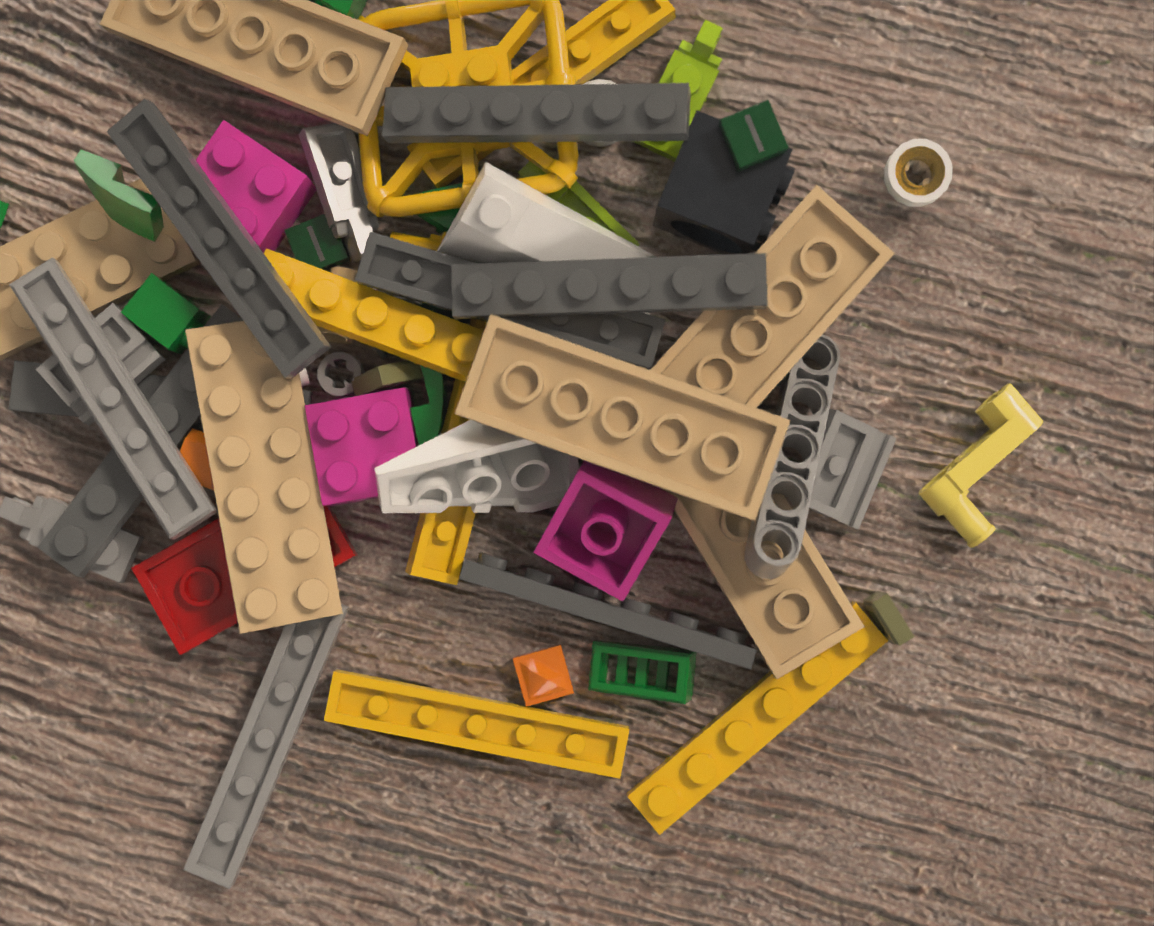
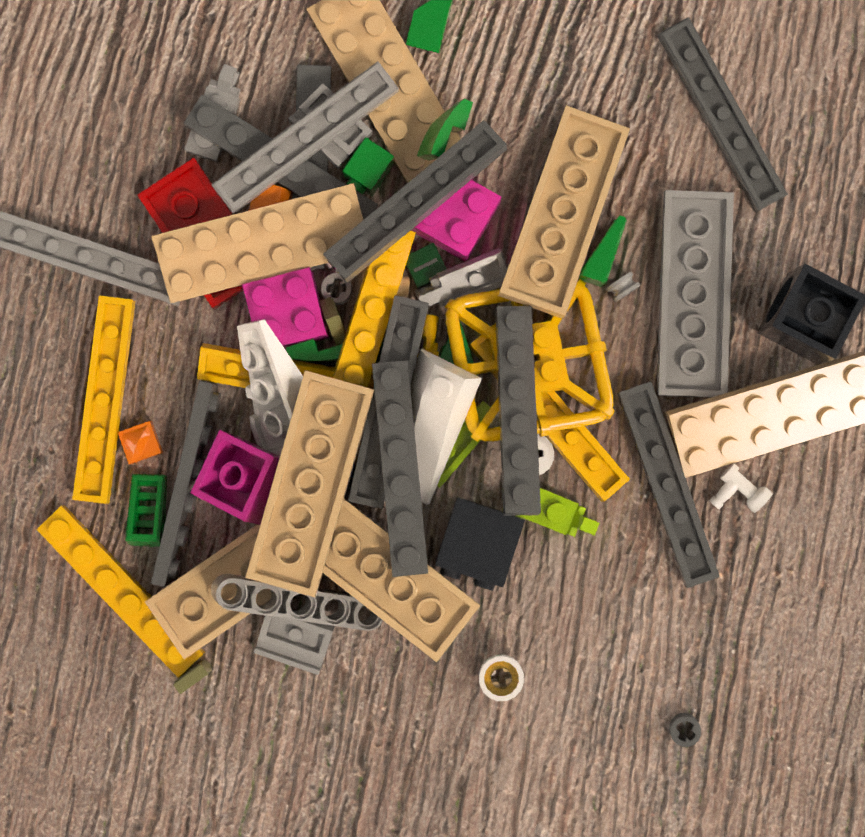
camera: 90 degrees right, 0 degrees up
(753, 135) = (508, 559): dark green tile -> none
(1009, 424) = (282, 711): light yellow beam -> none

